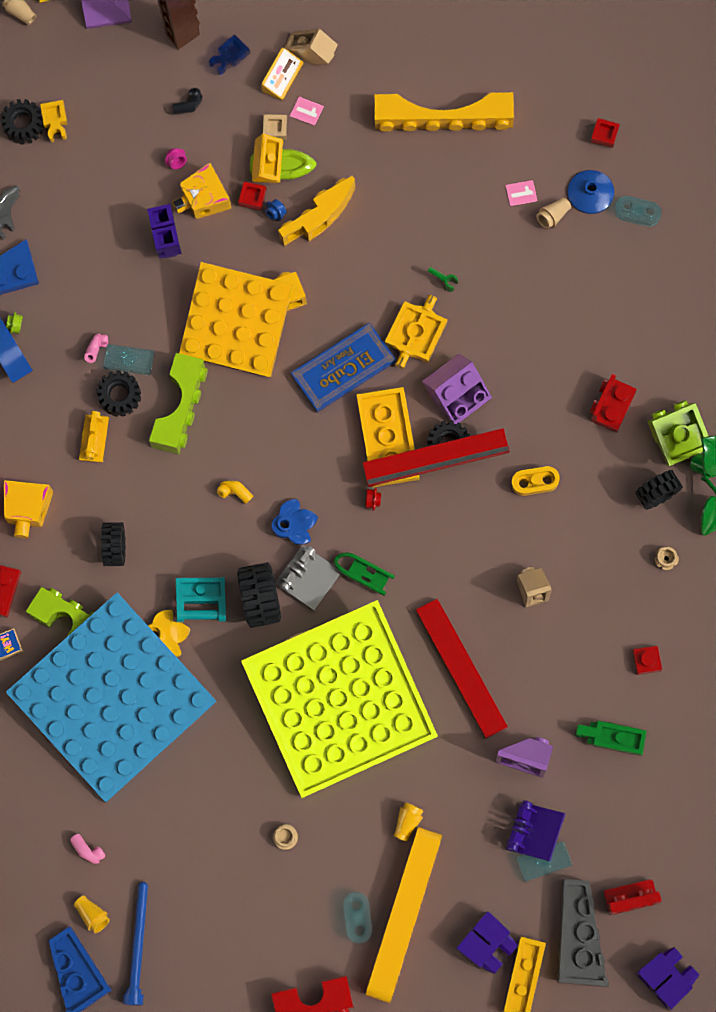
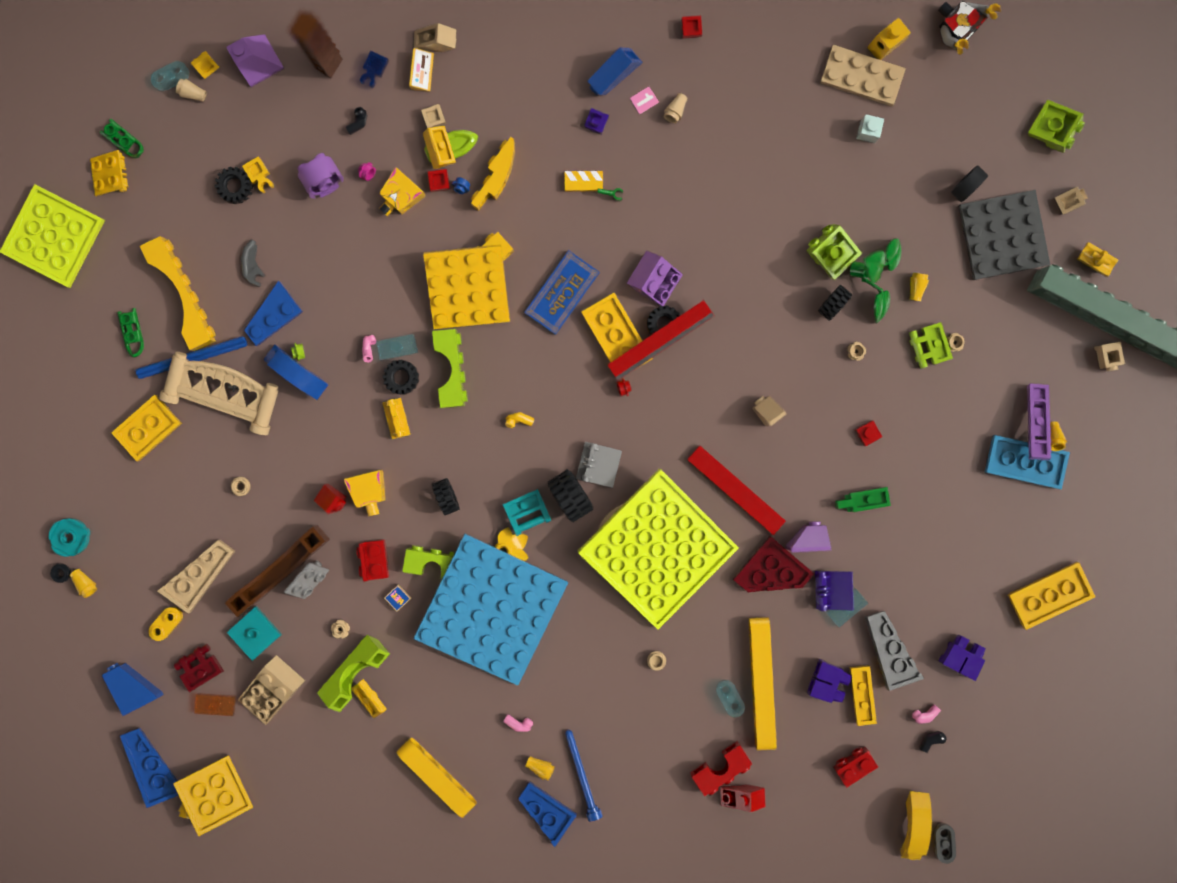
camera: 30 degrees left, 15 degrees up
(121, 143) = (320, 176): none -> medium lavender brick
(164, 231) = (383, 236): dark purple hips -> none
(297, 521) = (574, 425): blue plate -> none
(306, 111) = (452, 93): bright pink sticker -> none
(358, 570) = (633, 446): green piece -> none
(407, 821) = (739, 616): yellow cone -> none
(416, 254) = (583, 181): none -> yellow tile
(416, 332) = (606, 244): yellow plate -> none
(457, 196) = (596, 121): none -> dark purple tile
(469, 779) = (773, 569): none -> dark red plate
(492, 111) = (523, 69): yellow arch -> none
(498, 147) = (614, 71): none -> blue slope
(534, 479) = (739, 329): yellow plate -> none
(590, 201) = (697, 88): blue dish -> none
(613, 403) = (775, 246): red bracket -> none
(631, 897) = (919, 611): red bracket -> none
(637, 212) = (740, 84): clear light blue plate -> none

